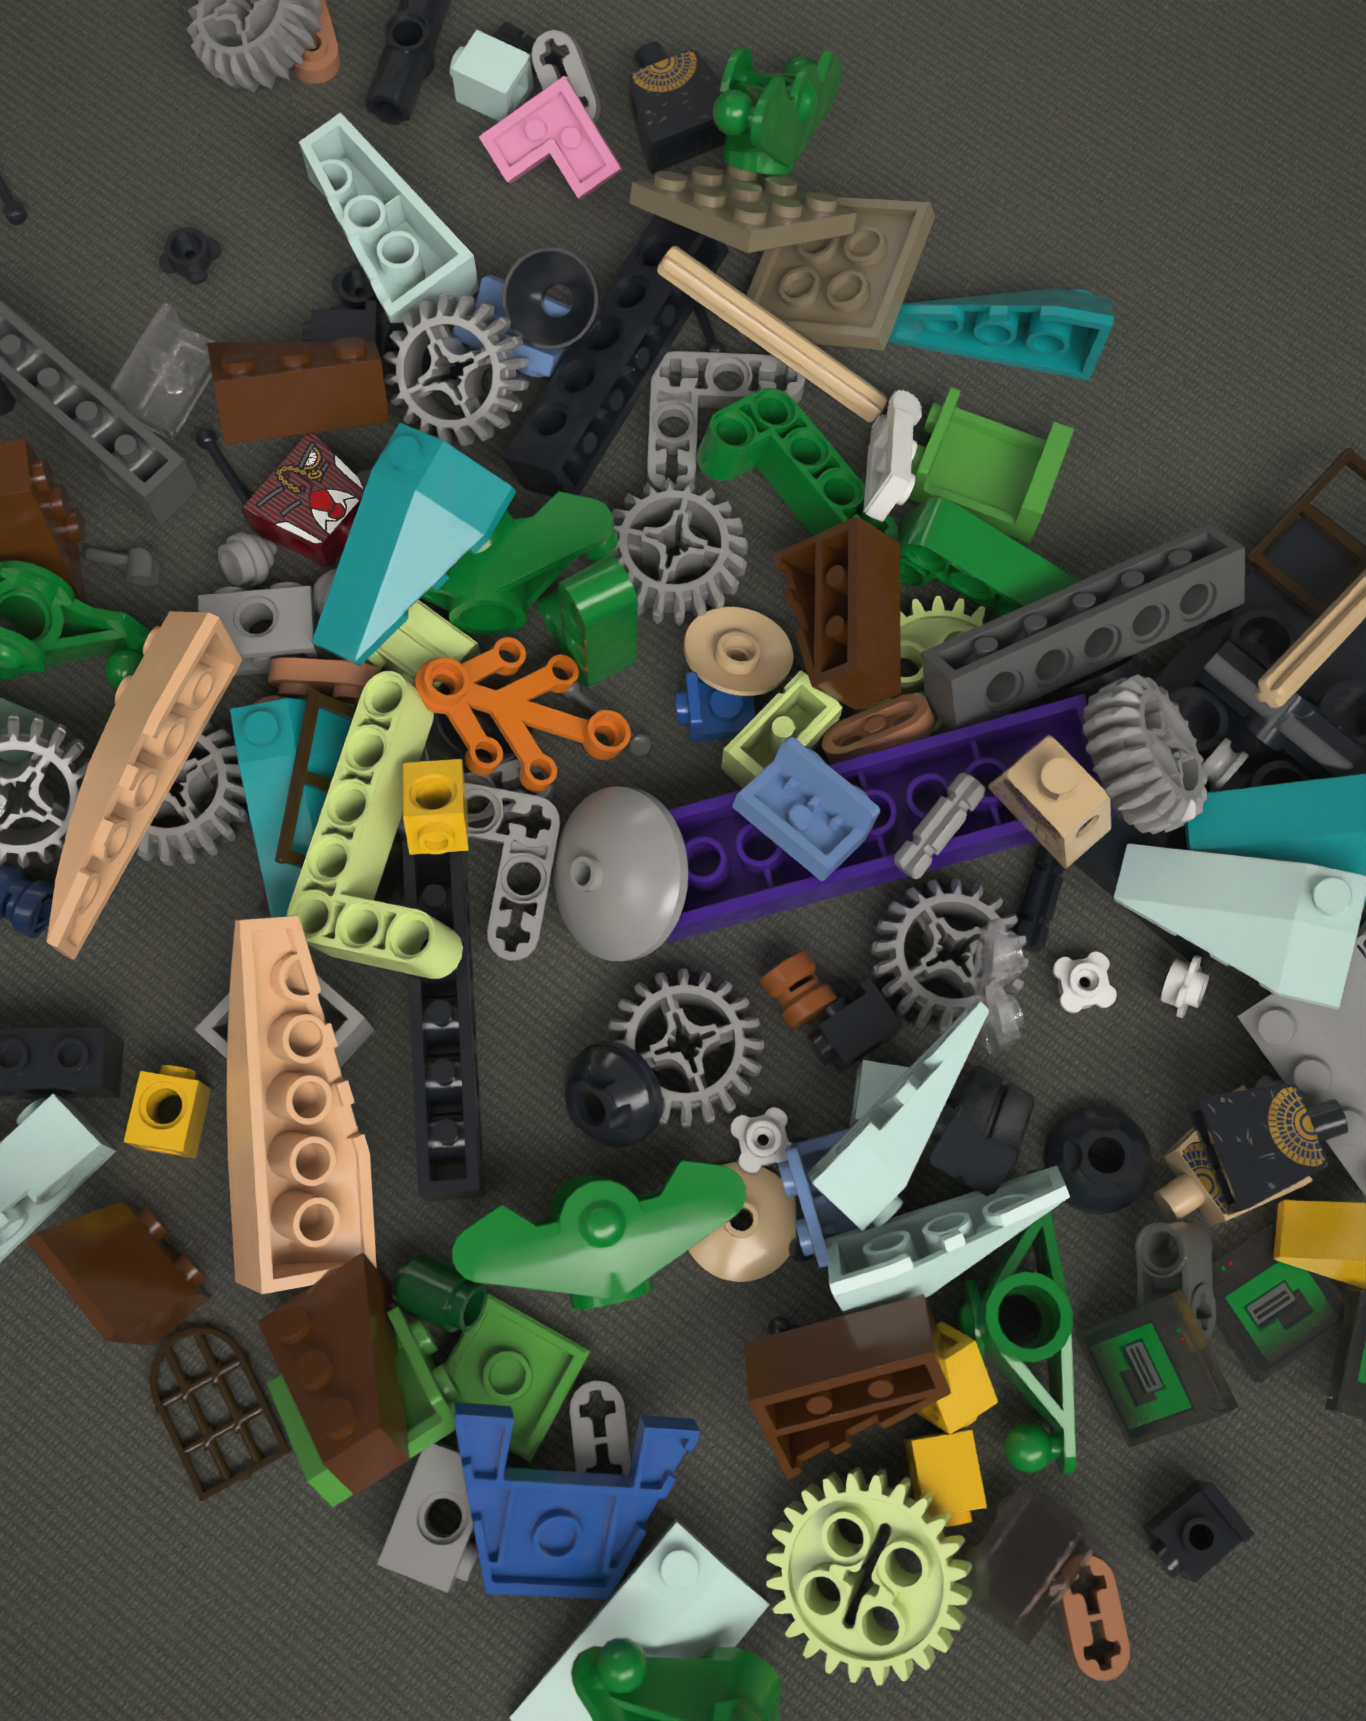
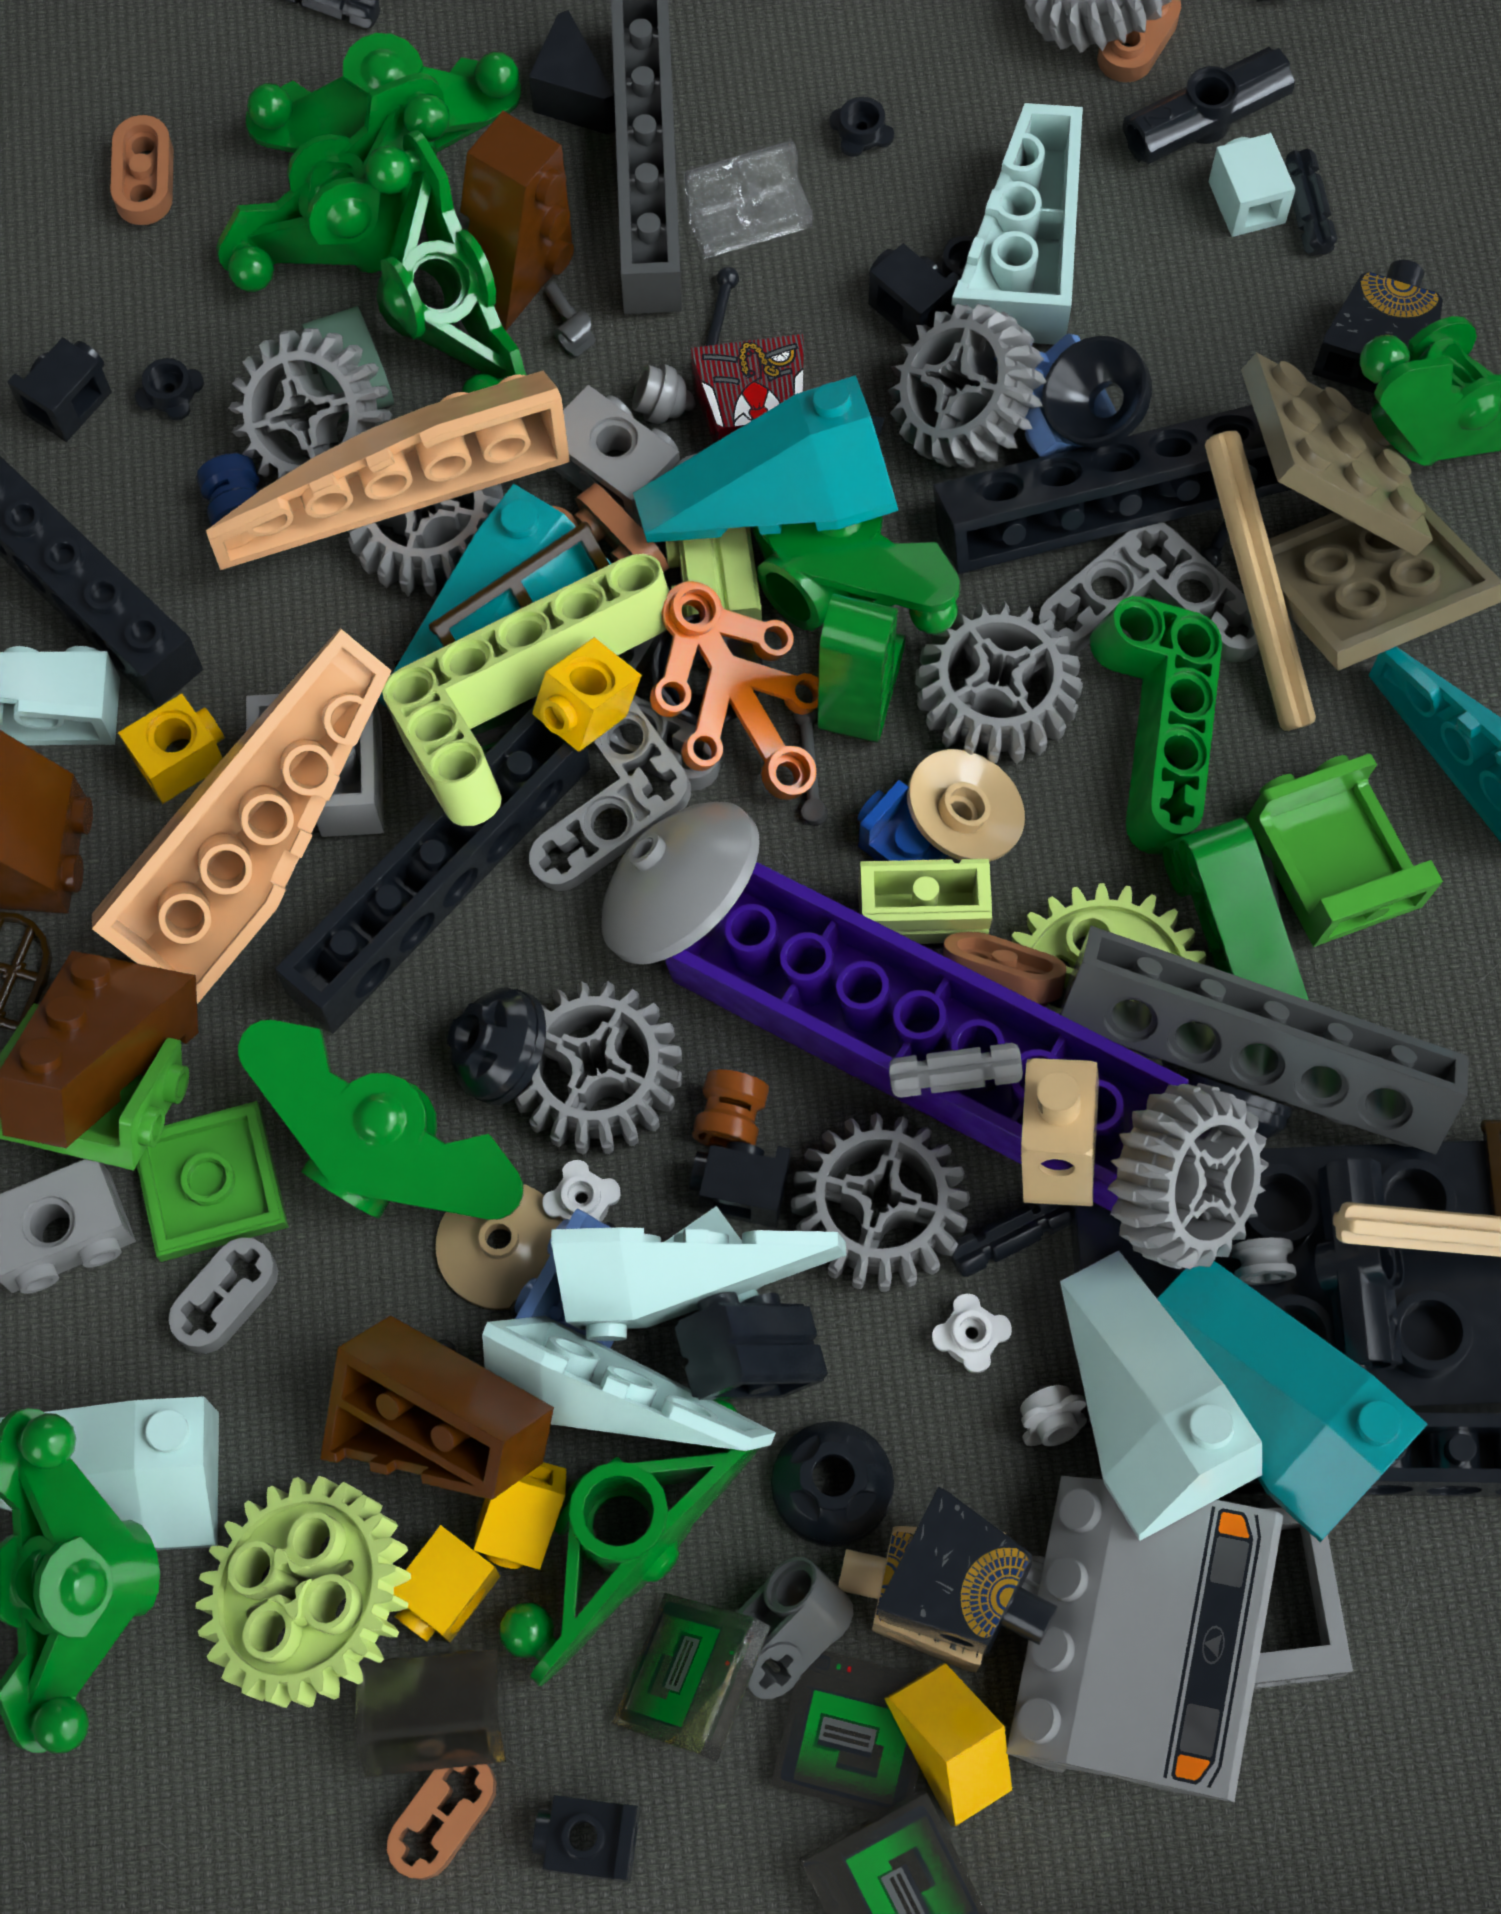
camera: 50 degrees right, 5 degrees down
(296, 387) = (824, 290): reddish brown wedge -> none
(439, 1294) = (216, 1068): dark green brick -> none
(553, 126) = (1259, 267): bright pink plate -> none
(561, 1528) = (118, 1313): blue wing -> none
(574, 65) = (1307, 235): light grey beam -> none
(808, 809) = (862, 958): medium blue bracket -> none
(847, 610) = (1076, 847): reddish brown wedge -> none
(891, 455) = (1261, 762): white hinge -> none
(995, 967) = (888, 1234): clear slope -> none

